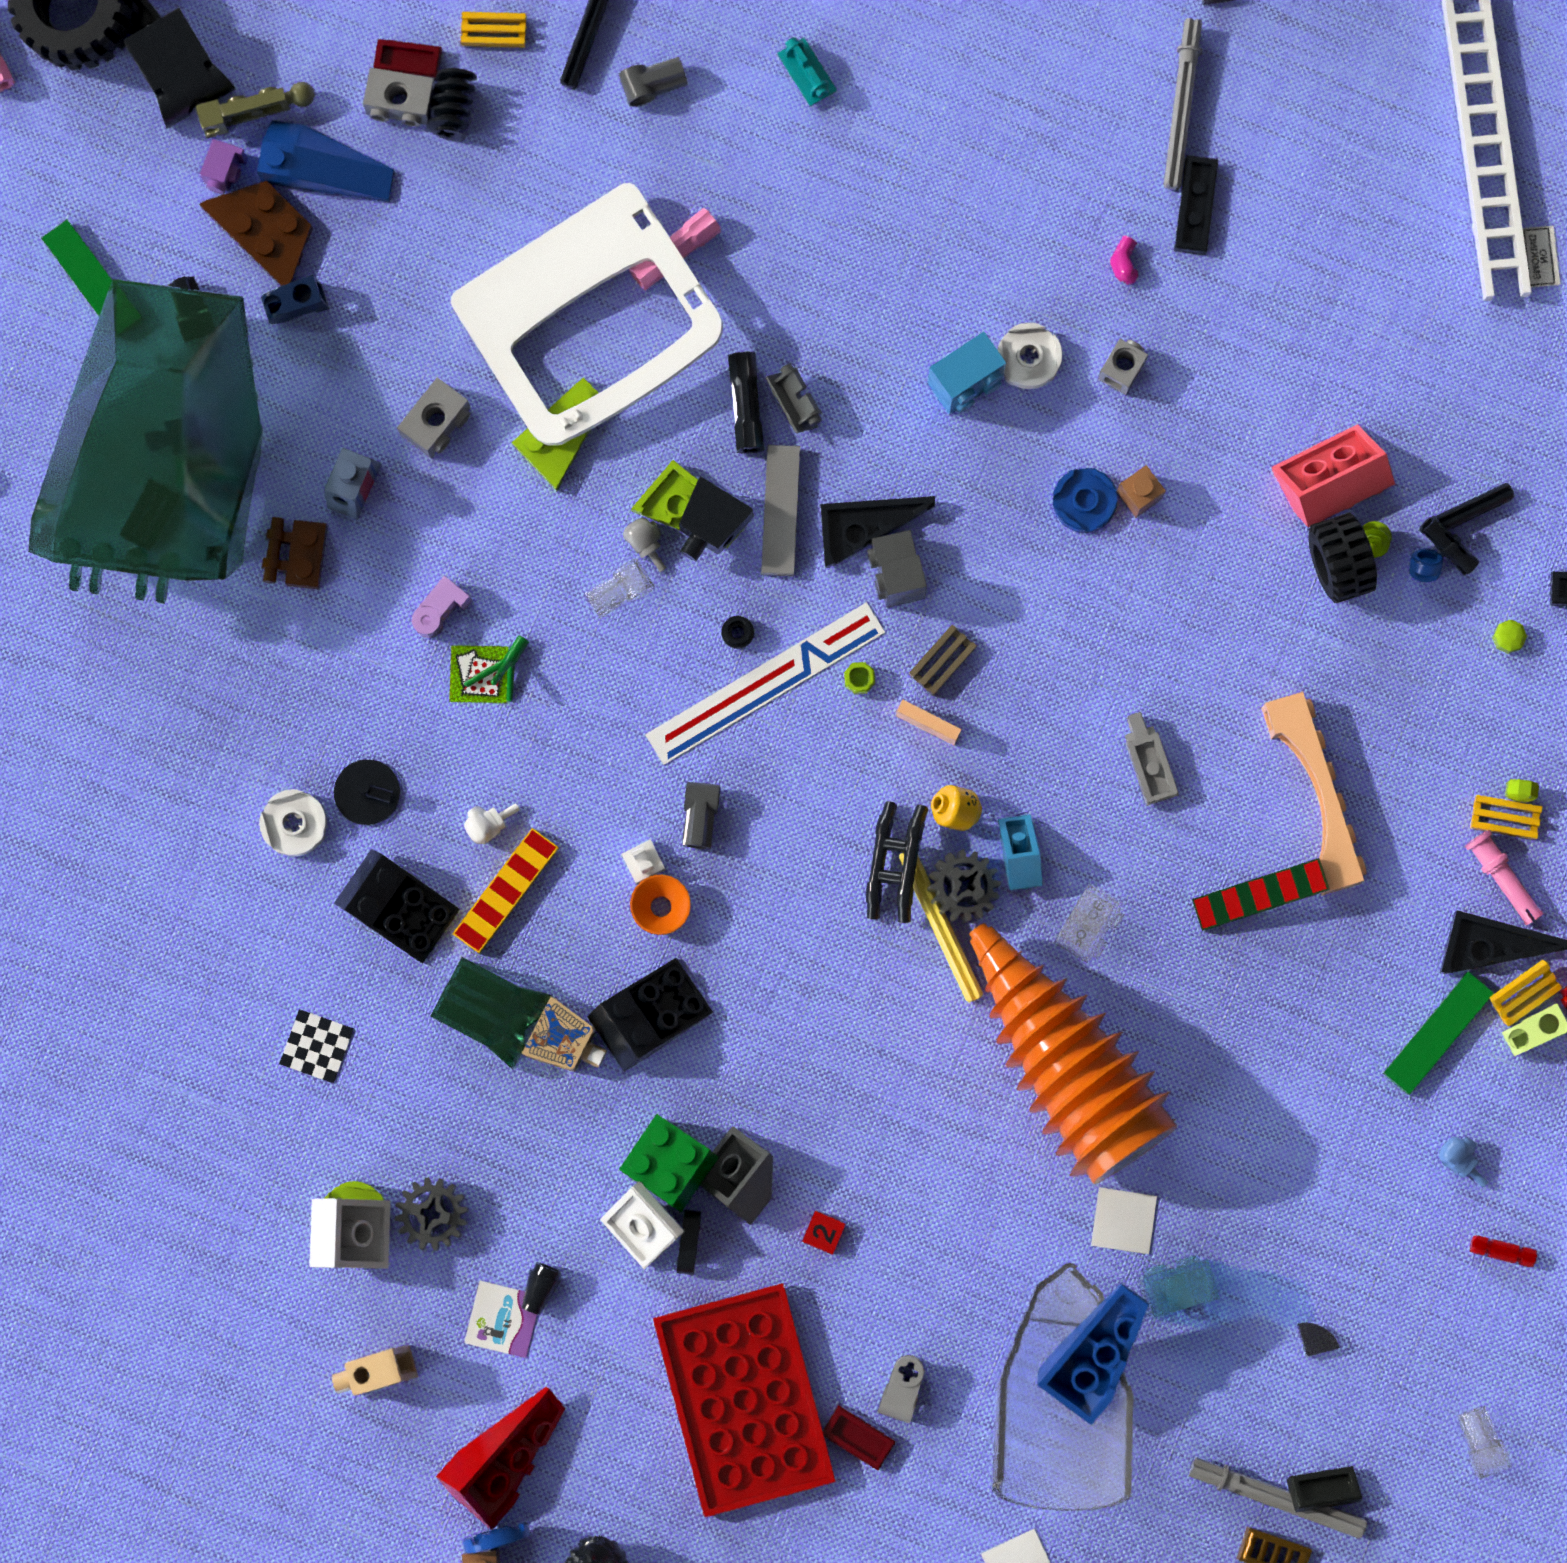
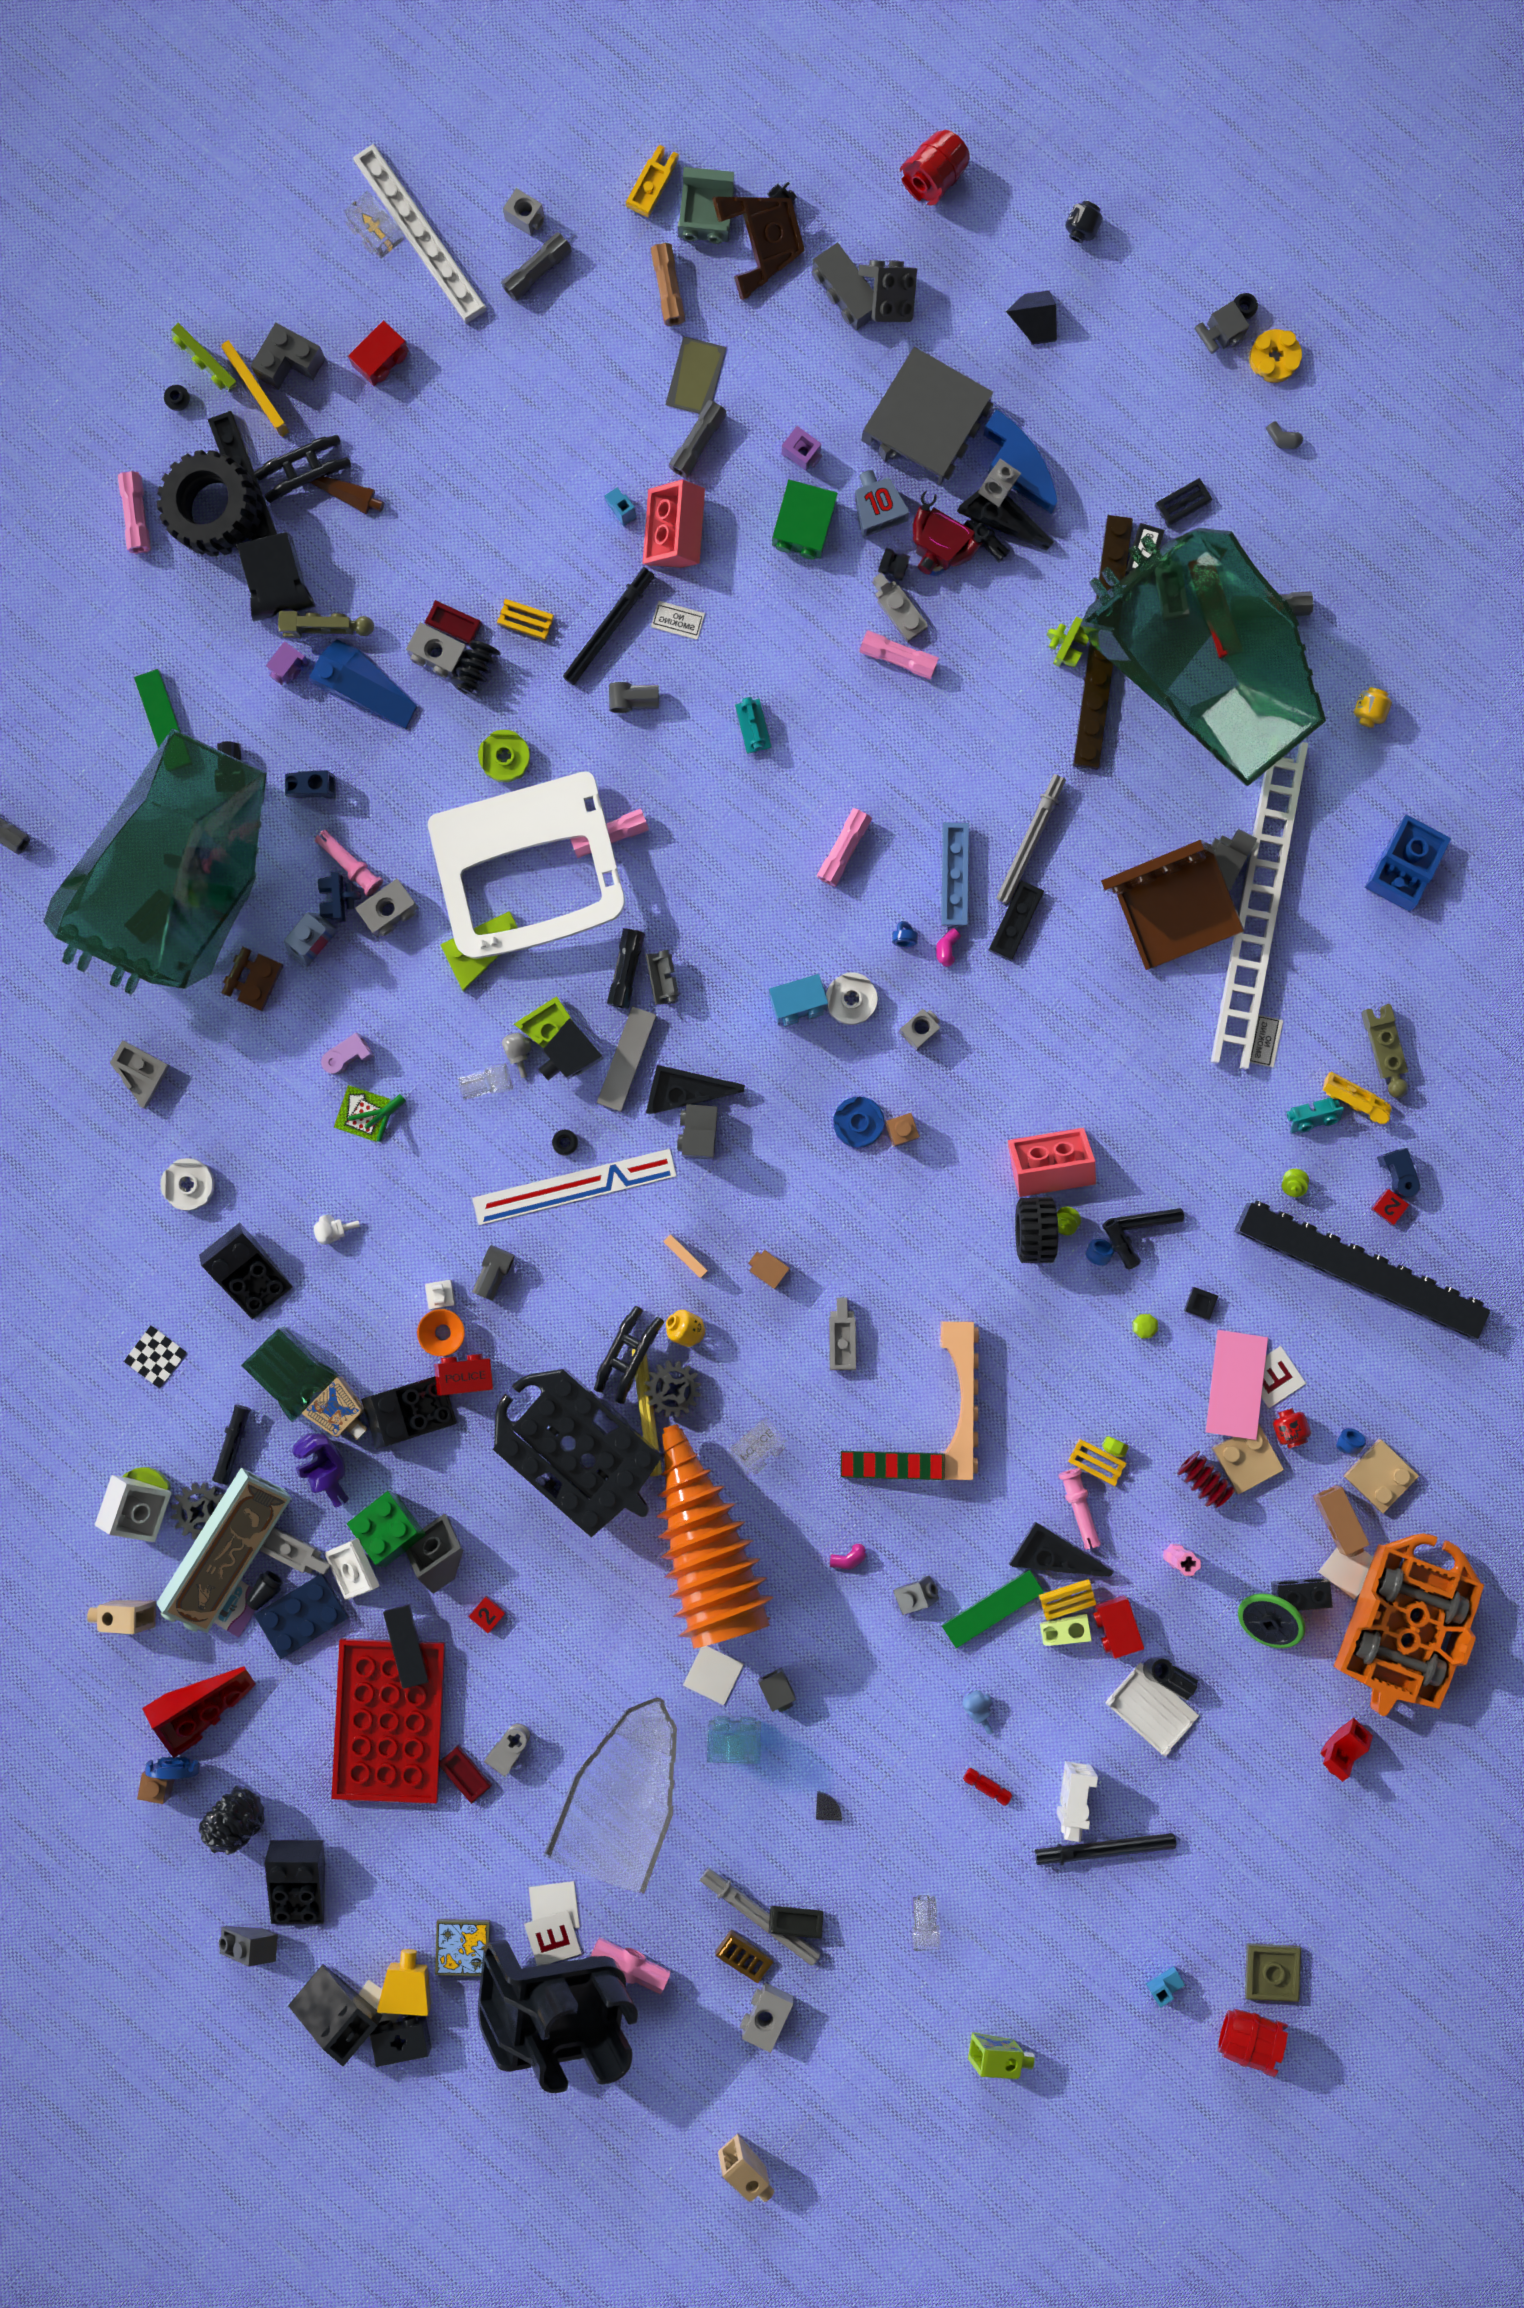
camera: 15 degrees right, 5 degrees up
(192, 705) = (139, 1071): none -> light grey wing
(263, 227) = (304, 720): reddish brown wing -> none
(359, 411) = (336, 908): none -> dark blue hips
(366, 792) = (250, 1177): black shield -> none
(383, 385) = (356, 870): none -> bright pink pin
(444, 1124) = (234, 1434): none -> black pin
(477, 1252) = (223, 1551): none -> brick
(505, 891) = (330, 1284): tile -> none
(533, 208) = (494, 745): none -> lime plate
(560, 1229) = (294, 1552): none -> light grey hinge
(569, 1113) = (324, 1469): none -> dark purple piece
(595, 1306) = (301, 1616): none -> dark blue plate
(689, 1242) = (384, 1591): black beam -> none
(704, 948) = (463, 1376): none -> red brick
(738, 1298) = (406, 1646): none -> black tile
(824, 1005) = (570, 1411): none -> black piece
(859, 678) = (645, 1206): lime tile -> none
(960, 639) = (731, 1199): dark tan tile -> none
(962, 181) = (844, 847): none -> bright pink axle
(1020, 852) = (723, 1375): dark azure slope -> none
(1033, 706) = (768, 1268): none -> medium nougat brick
(1069, 262) = (906, 937): none -> blue tile
(1092, 1357) = (652, 1776): blue wedge -> none
(1105, 172) = (954, 874): none -> medium blue plate
(1209, 1212) = (777, 1690): none -> dark grey brick
(1247, 1028) = (851, 1560): none -> dark pink arm
(1340, 1044) = (916, 1595): none -> bracket
(1380, 122) = (1176, 903): none -> reddish brown bracket
(1423, 60) = (1232, 854): none -> dark grey hinge

